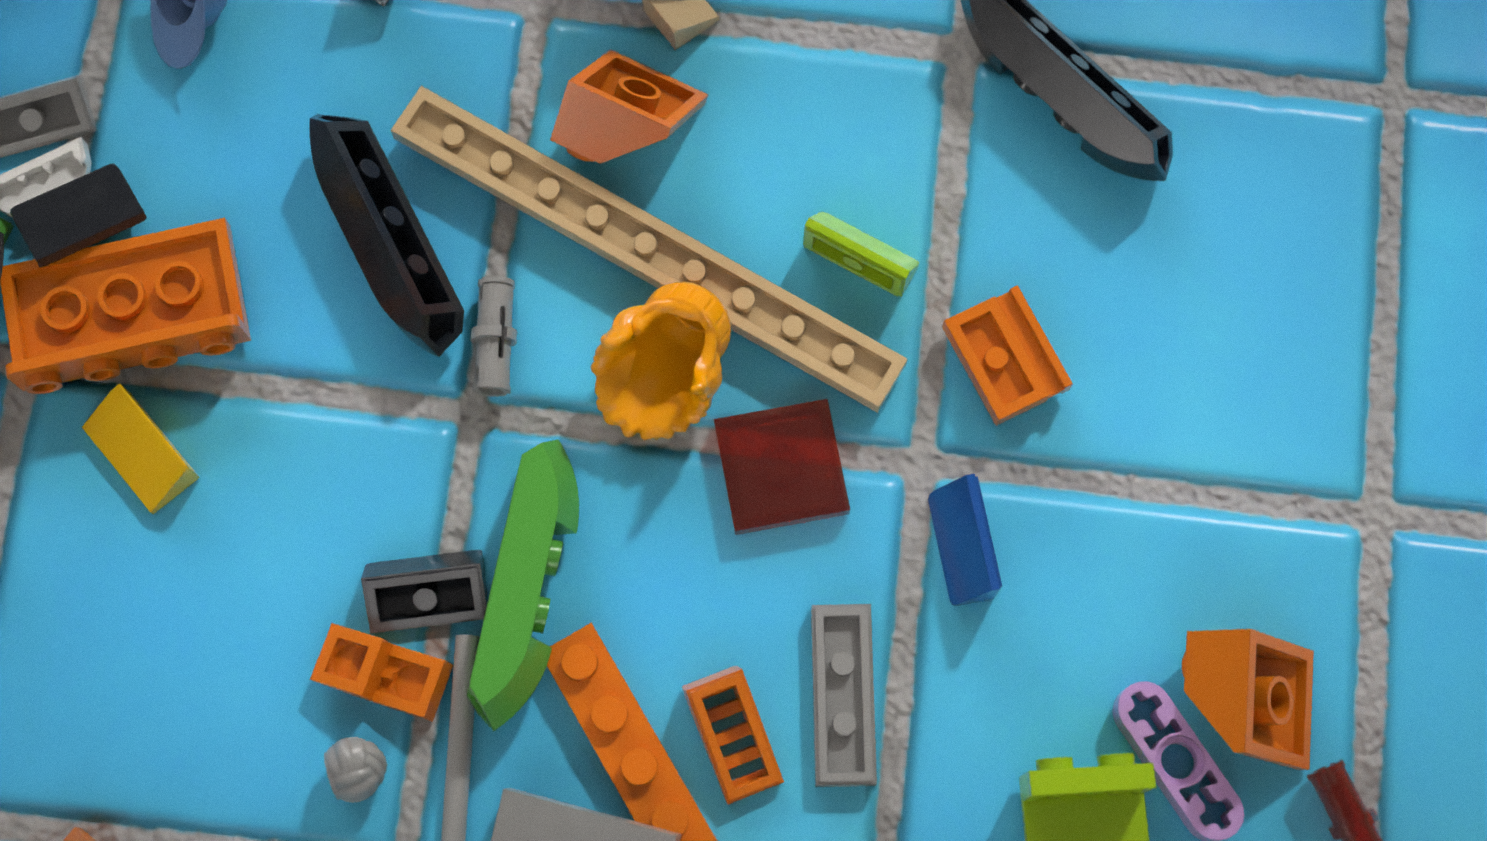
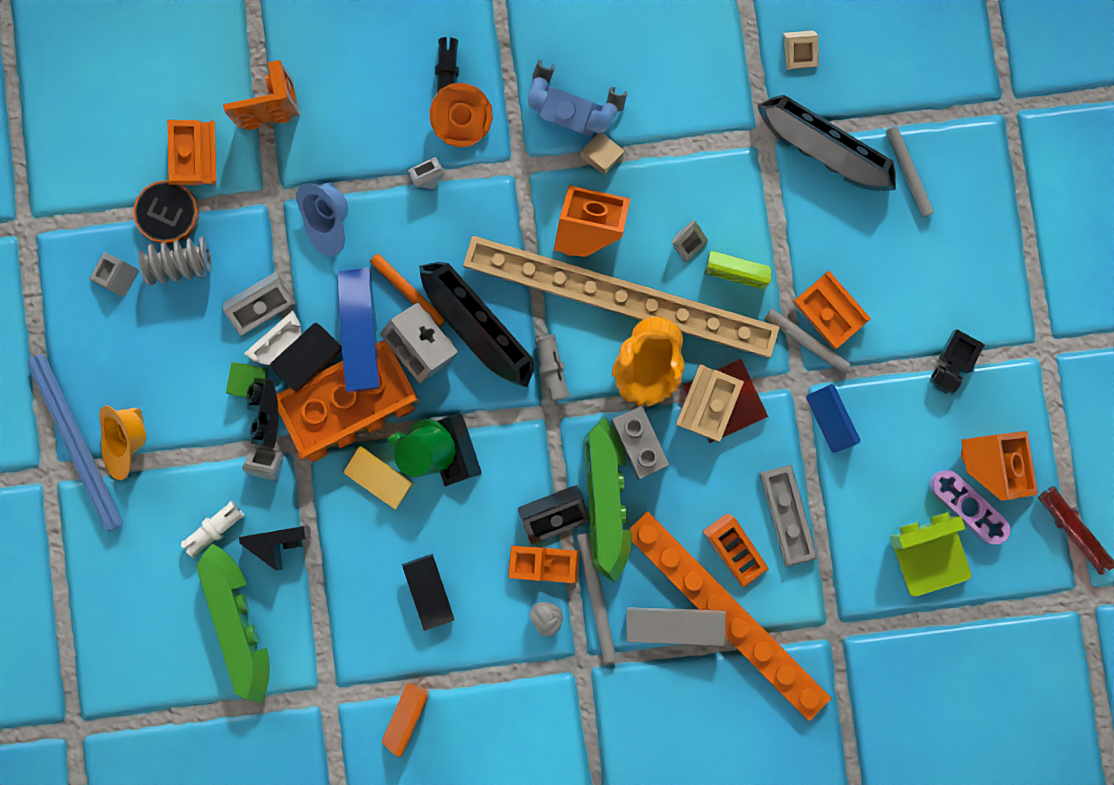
camera: 15 degrees left, 10 degrees up
(159, 669) = (428, 592): none -> black slope
(178, 193) = (358, 330): none -> blue slope
(225, 416) = (424, 449): none -> green hat
(275, 236) = (418, 342): none -> light grey brick
(284, 435) = (465, 460): none -> black slope
(287, 153) = (405, 287): none -> orange bar
(607, 497) = (639, 442): none -> light grey brick
(748, 457) = (709, 403): none -> tan plate
(788, 182) = (689, 240): none -> light grey slope
(953, 399) = (807, 341): none -> light grey bar
(1198, 162) = (909, 171): none -> light grey bar
(1218, 486) = (960, 354): none -> black plate

